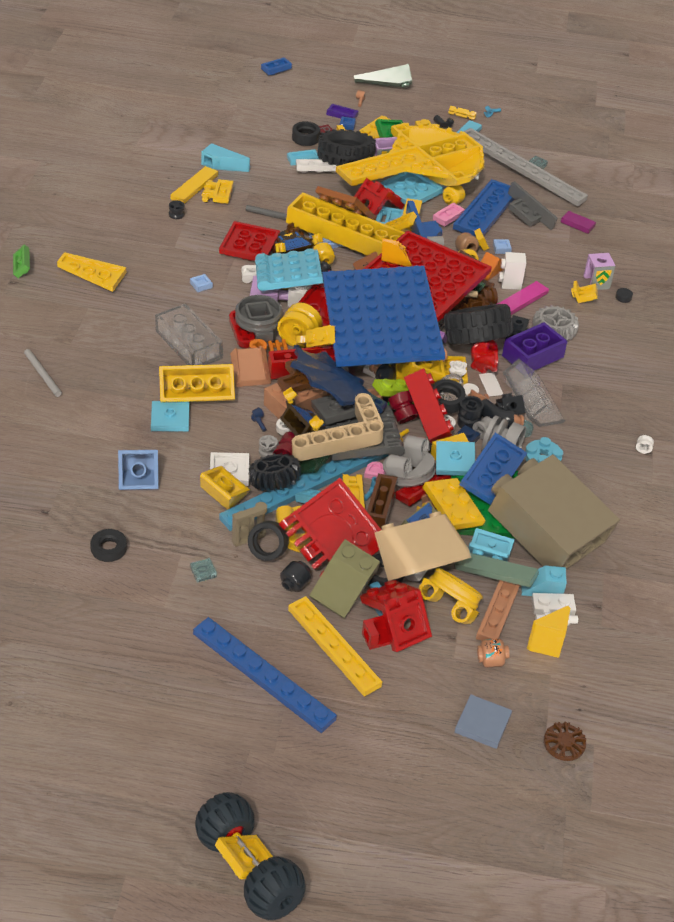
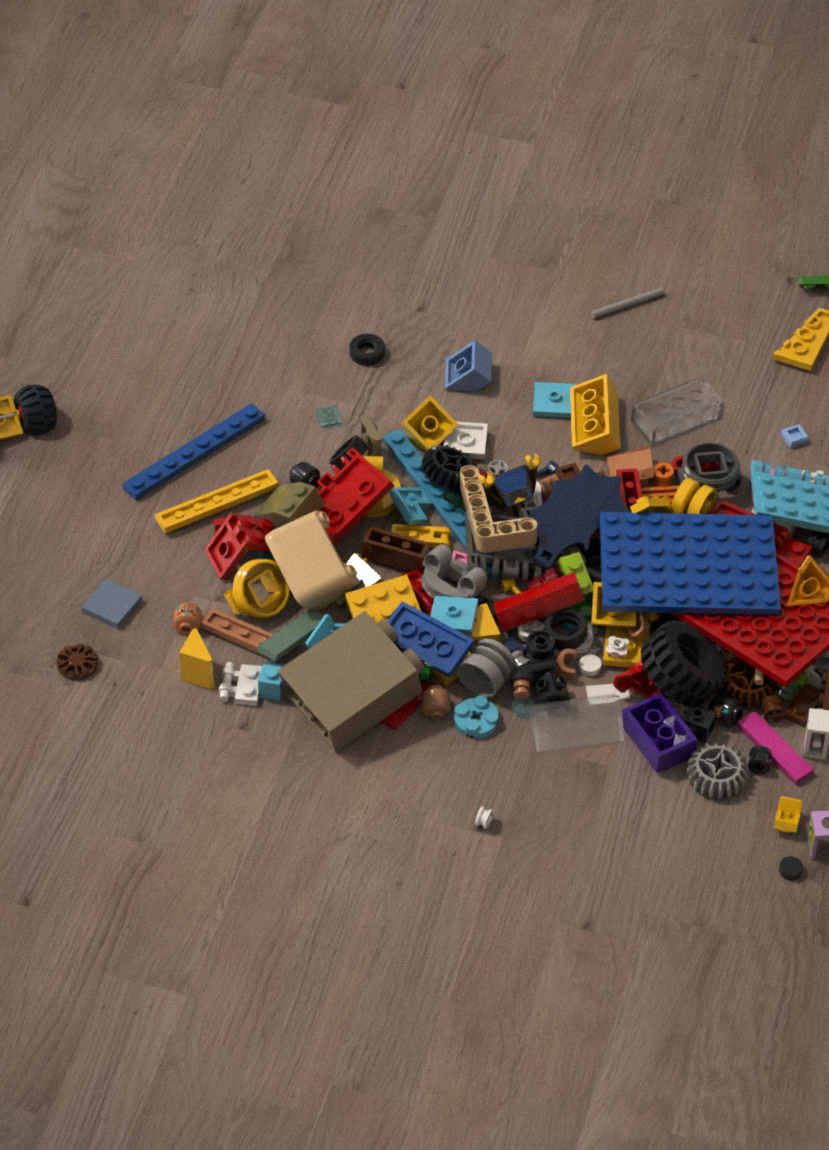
camera: 100 degrees right, 5 degrees up
(537, 302) = (760, 759): none -> black wheel

